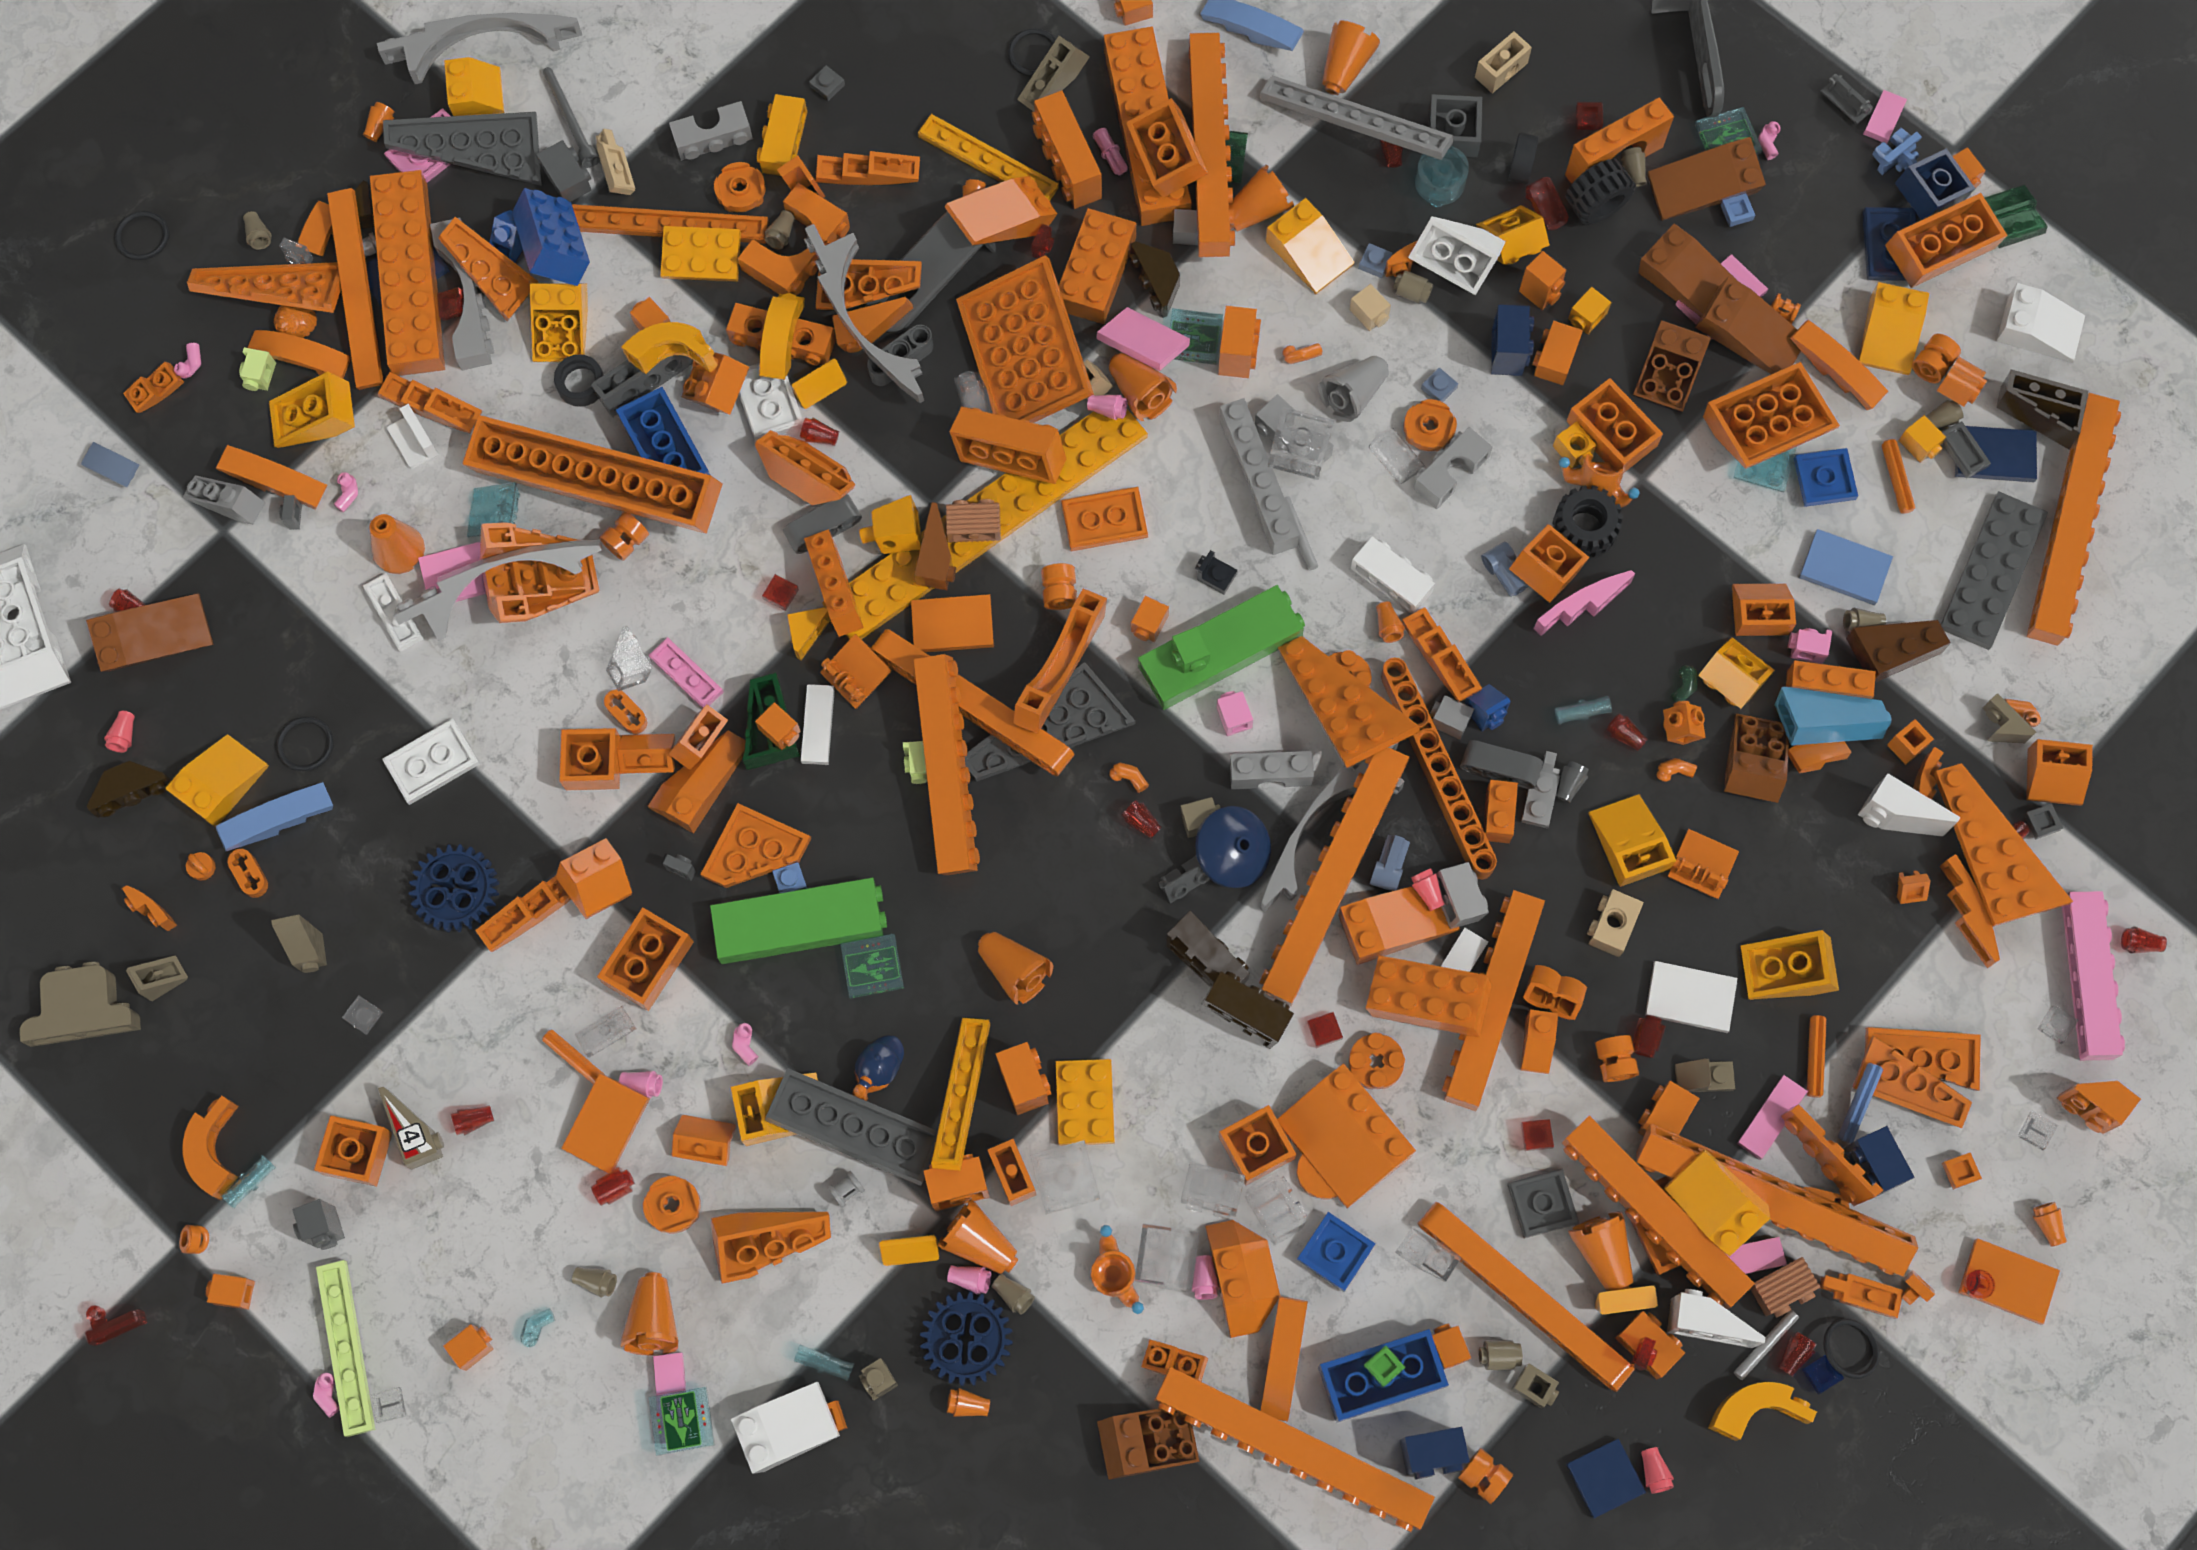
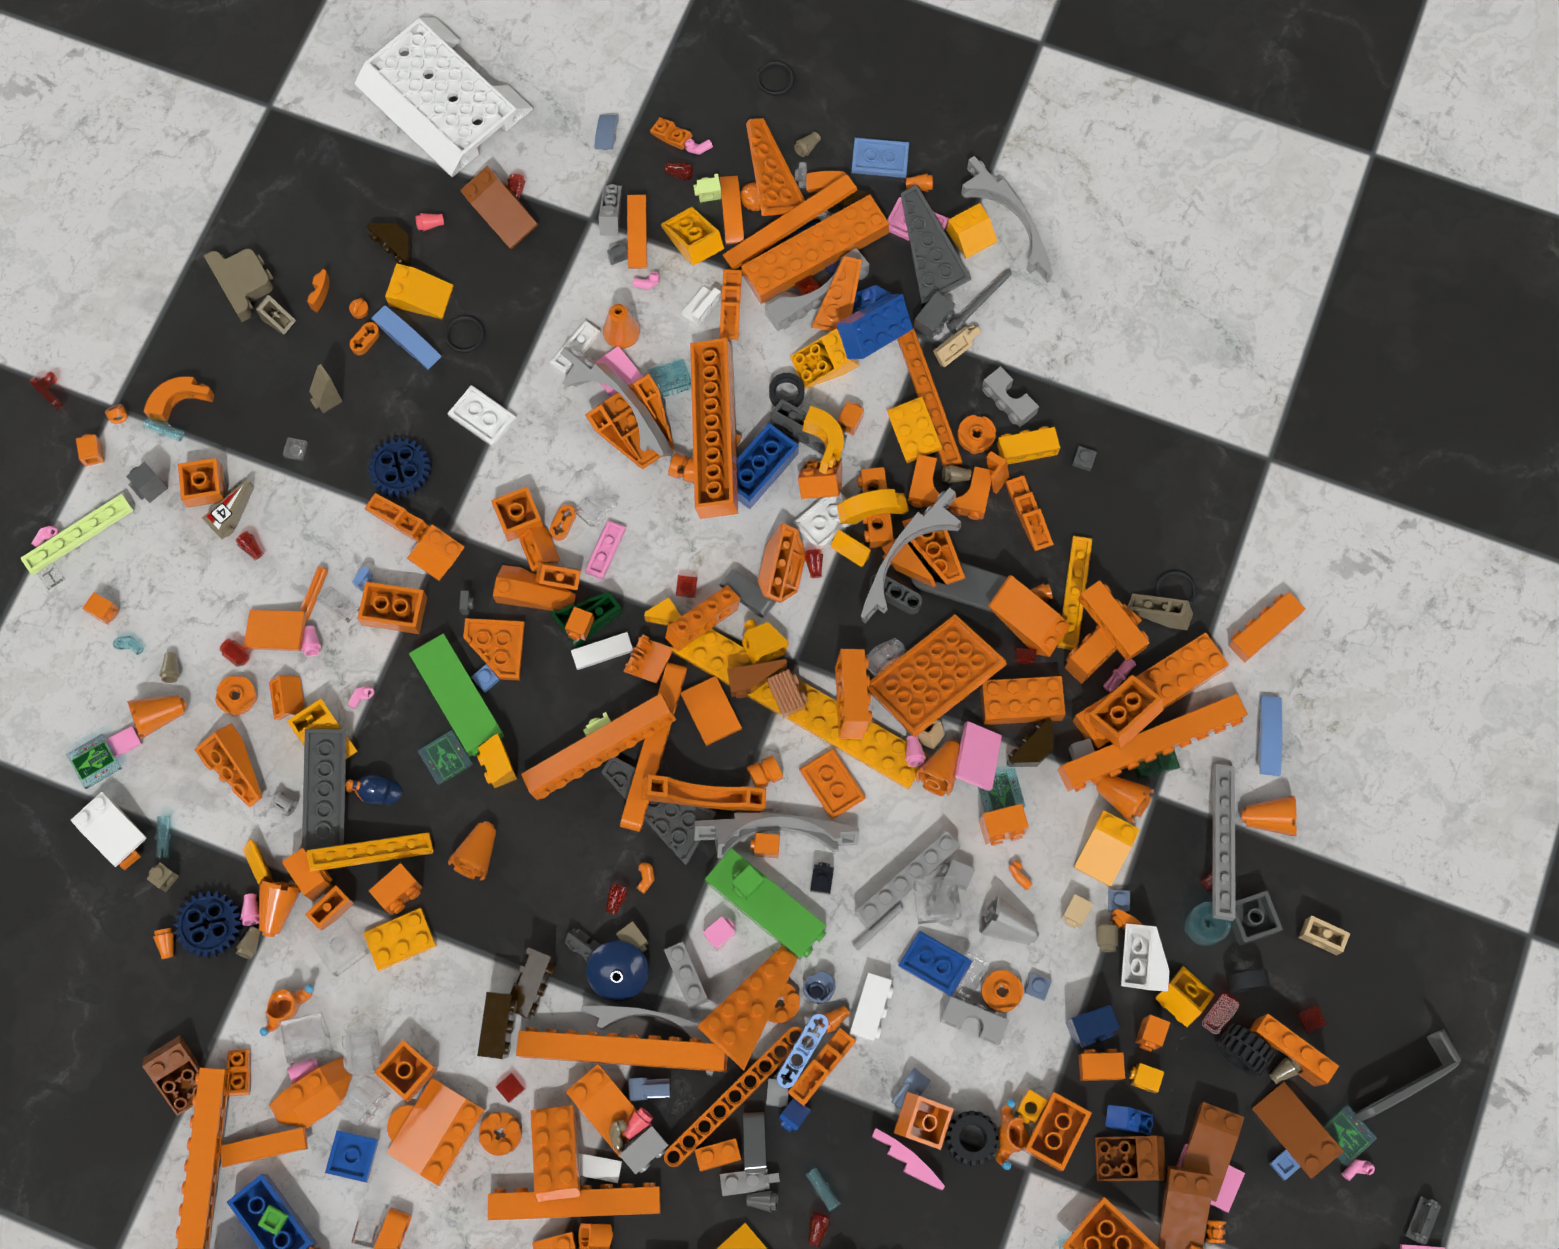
camera: 65 degrees right, 0 degrees up
(212, 395) = (680, 170): none -> clear red cone
(318, 155) = (880, 157): none -> medium blue tile
(587, 985) = (363, 576): none -> medium blue plate
(908, 898) = (496, 761): none -> light orange slope
(1051, 116) = (1113, 620): none -> orange brick
(1116, 653) = (730, 831): none -> light grey slope
(1346, 622) = (819, 987): none -> sand blue hair
(1369, 483) = (935, 963): none -> blue tile
(1412, 668) = (805, 1053): none -> light blue beam
(1430, 918) = (614, 1133): none -> dark tan arm
(1629, 348) = (1129, 1120): none -> blue slope

